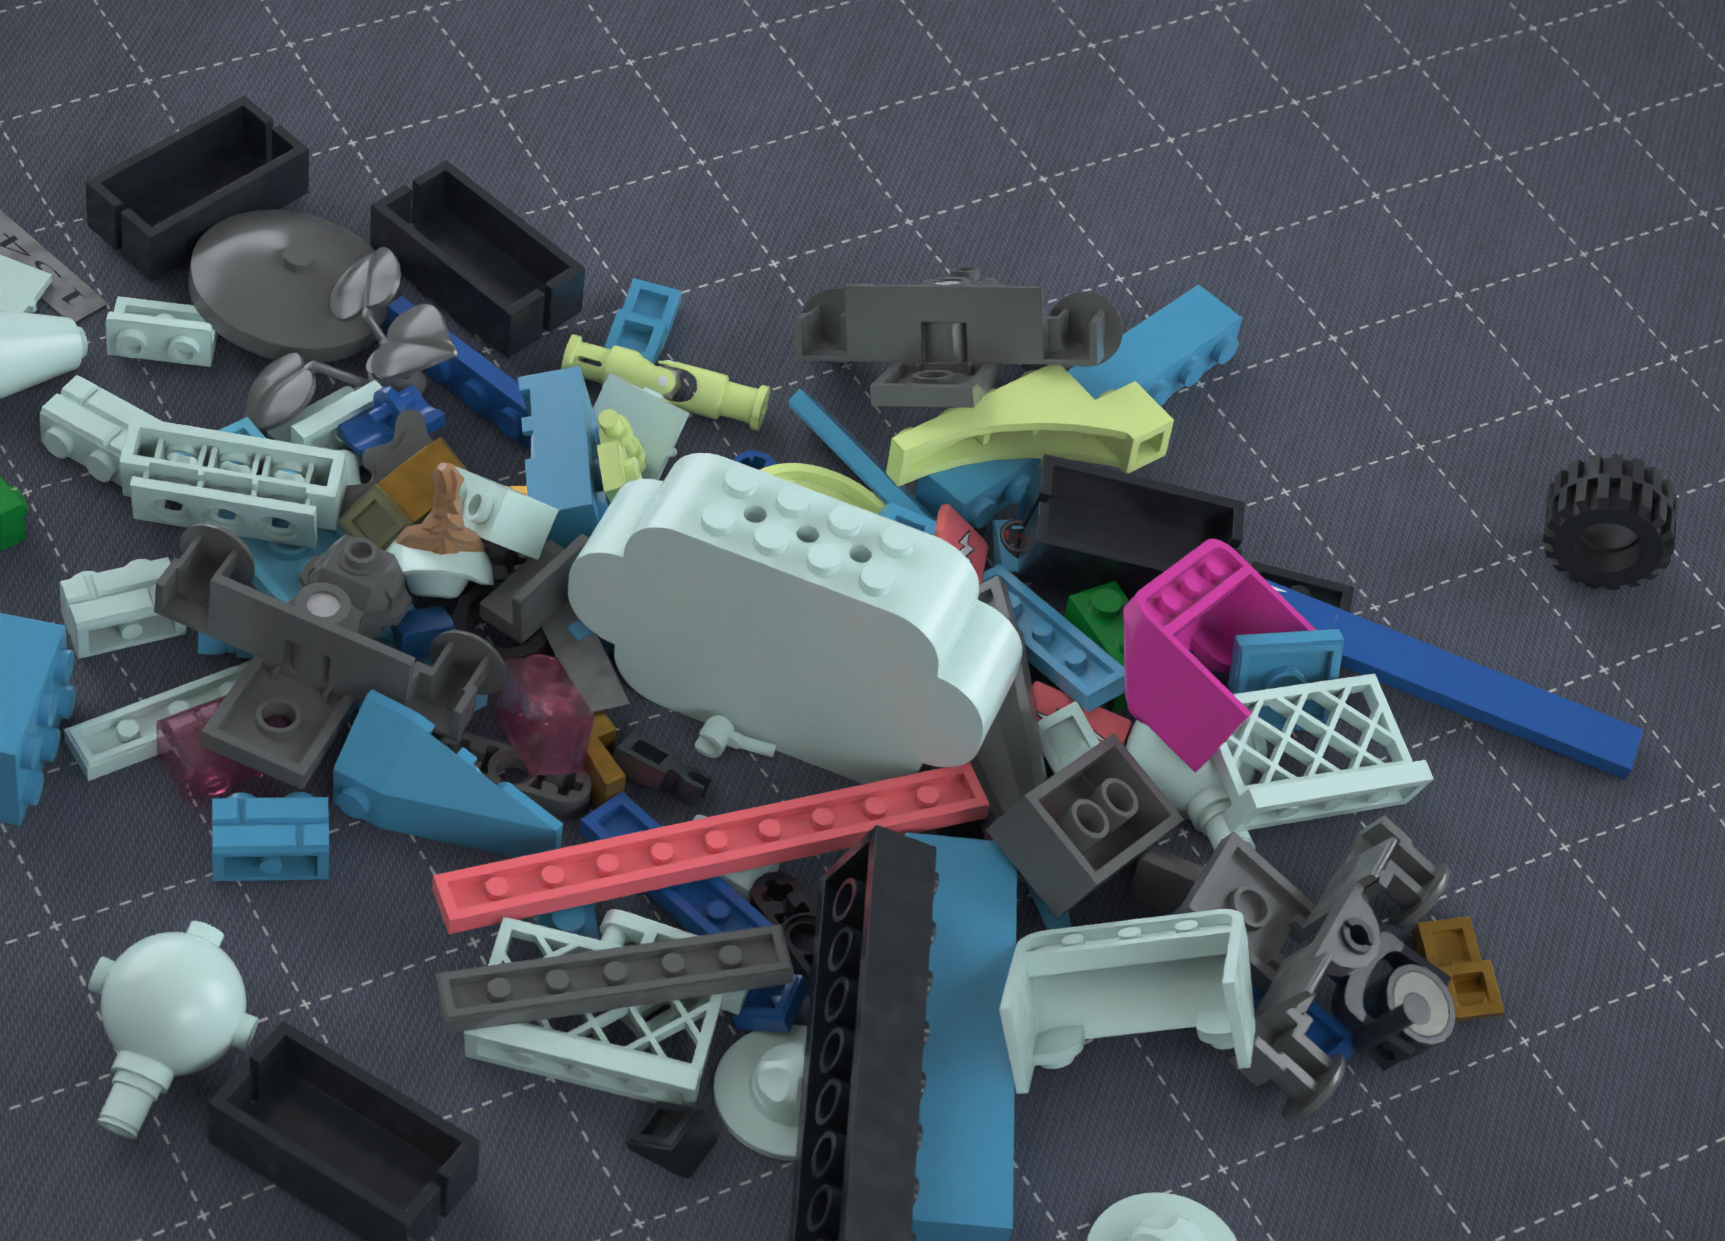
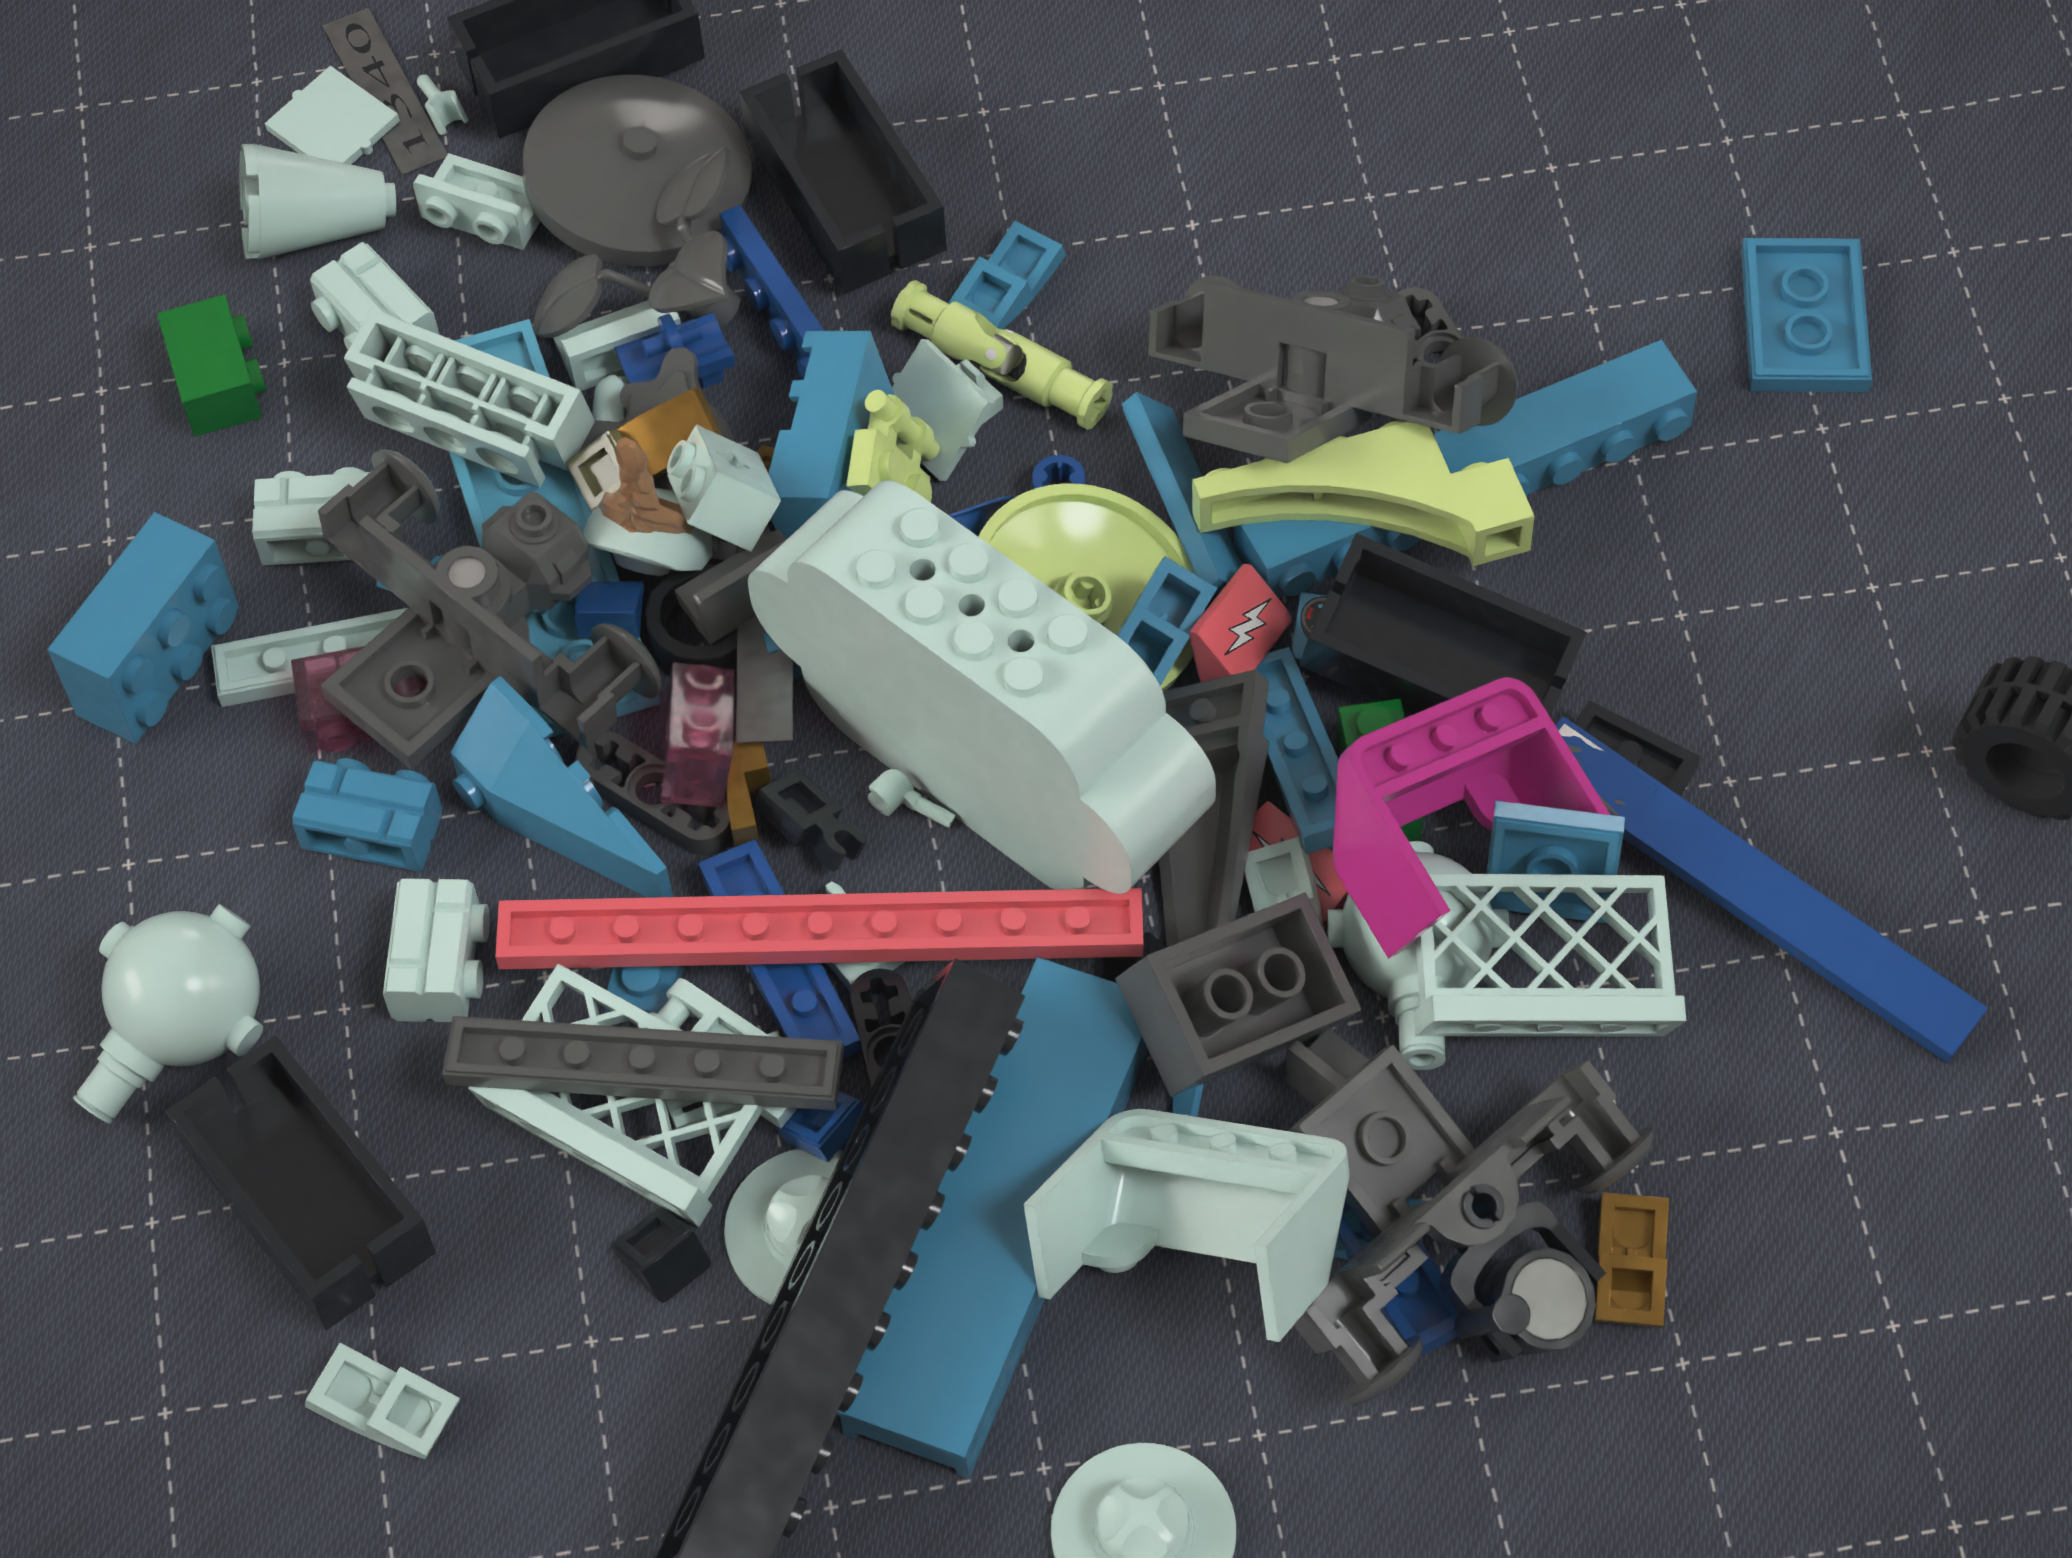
camera: 30 degrees right, 10 degrees up
(93, 261) = (441, 106): none -> light aqua hand
(377, 935) = (434, 949): none -> light aqua brick
(1287, 256) = (1805, 315): none -> dark azure tile

